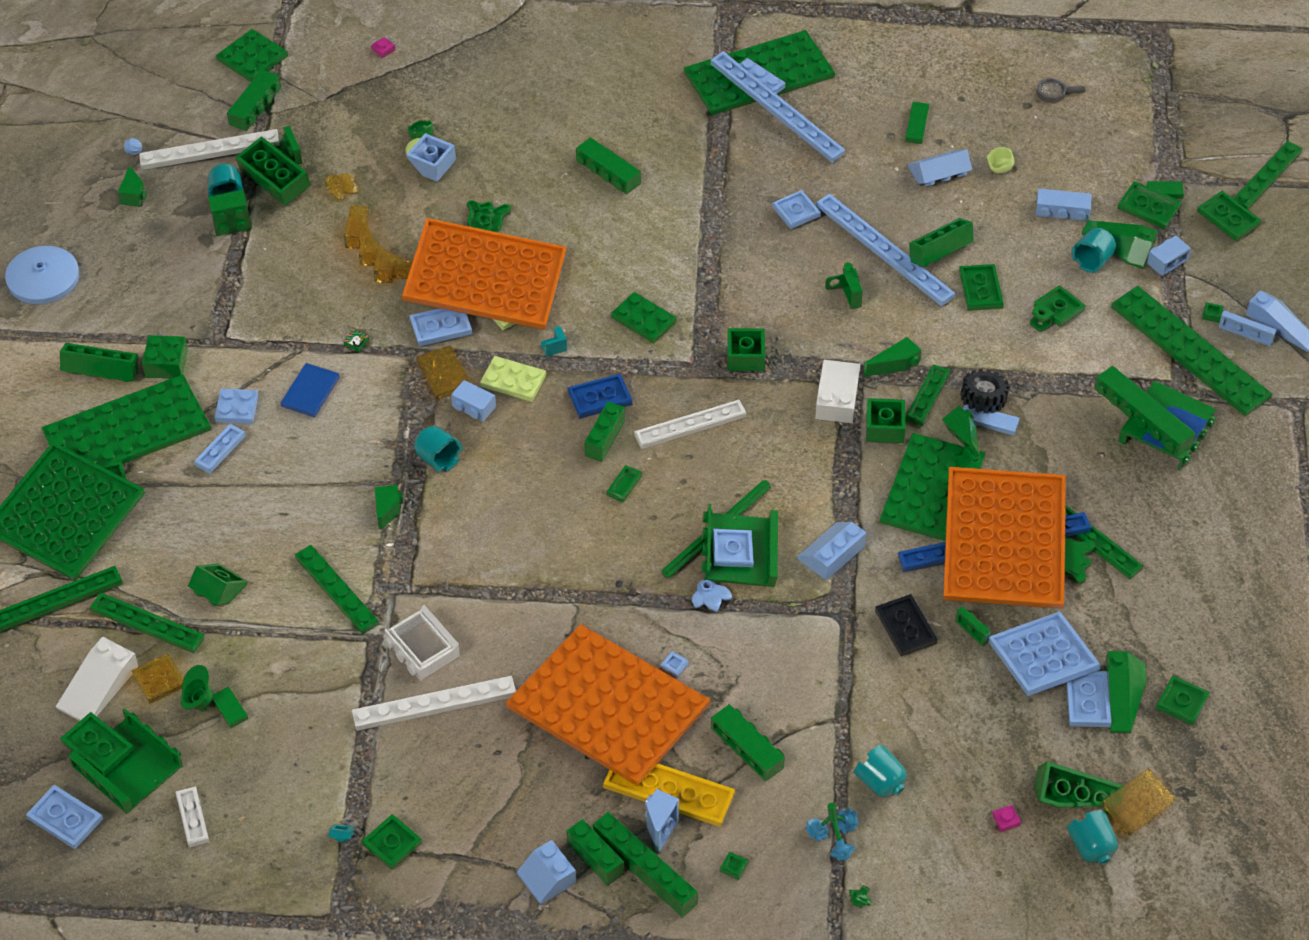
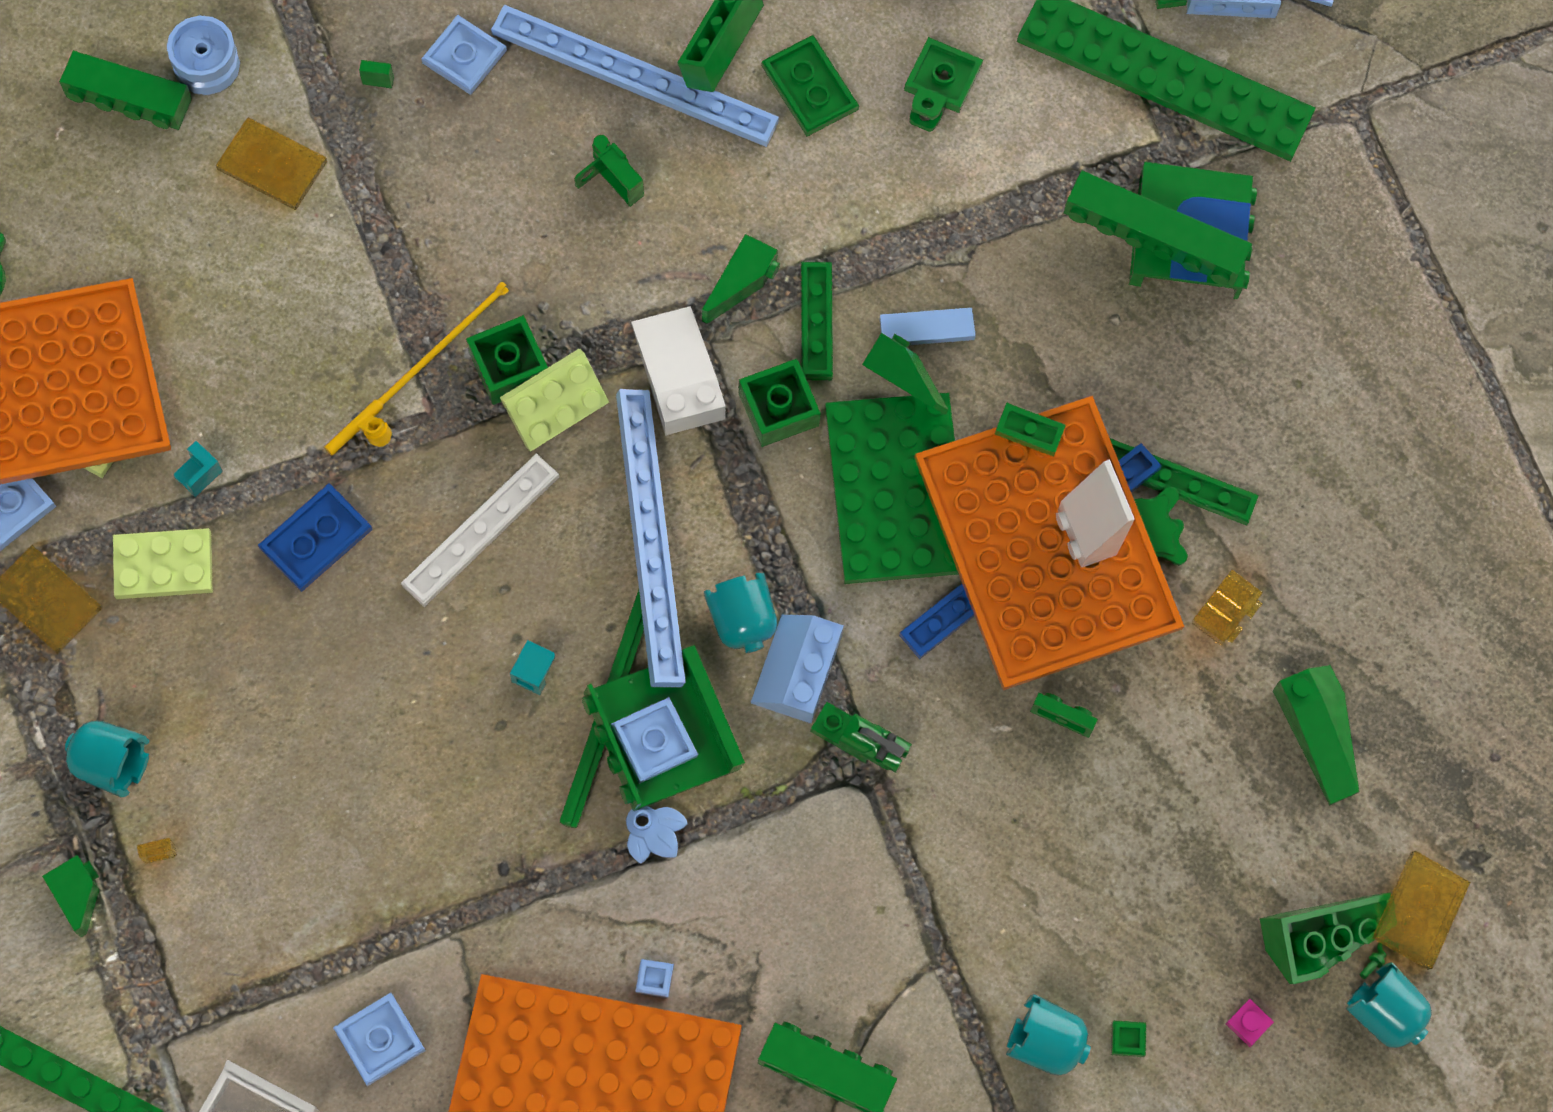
camera: 30 degrees left, 20 degrees up
(439, 501) = (156, 850): none -> clear yellow tile
(473, 400) = (121, 640): light blue brick -> none
(509, 632) = (379, 1039): none -> light blue plate
(604, 431) = (356, 606): green brick -> none
(624, 483) = (428, 684): green tile -> none
(643, 317) = (316, 359): green plate -> none
(657, 162) = (203, 55): none -> light blue wheel
(657, 354) = (375, 428): none -> yellow piece
(667, 224) = (271, 163): none -> clear yellow tile
(682, 492) = (532, 667): none -> teal panel
(744, 201) = (376, 74): none -> green tile
(761, 375) = (554, 399): none -> yellowish green plate
(780, 457) = (650, 539): none -> light blue plate
(813, 506) = (742, 612): none -> teal cylinder
(850, 593) = (860, 738): none -> green plate
(906, 625) = (966, 755): black plate -> none
(930, 798) = (1128, 1038): none -> green tile
(984, 391) = (910, 270): black wheel -> none
(1020, 475) = (1030, 429): none -> green plate
(1033, 522) = (1095, 516): none -> white slope
(1044, 653) = (1186, 719): light blue plate -> none
(1089, 700) = (1278, 765): light blue plate -> none
(1095, 609) = (1228, 608): none -> clear yellow brick
(1182, 700) = (1410, 707): green plate -> none

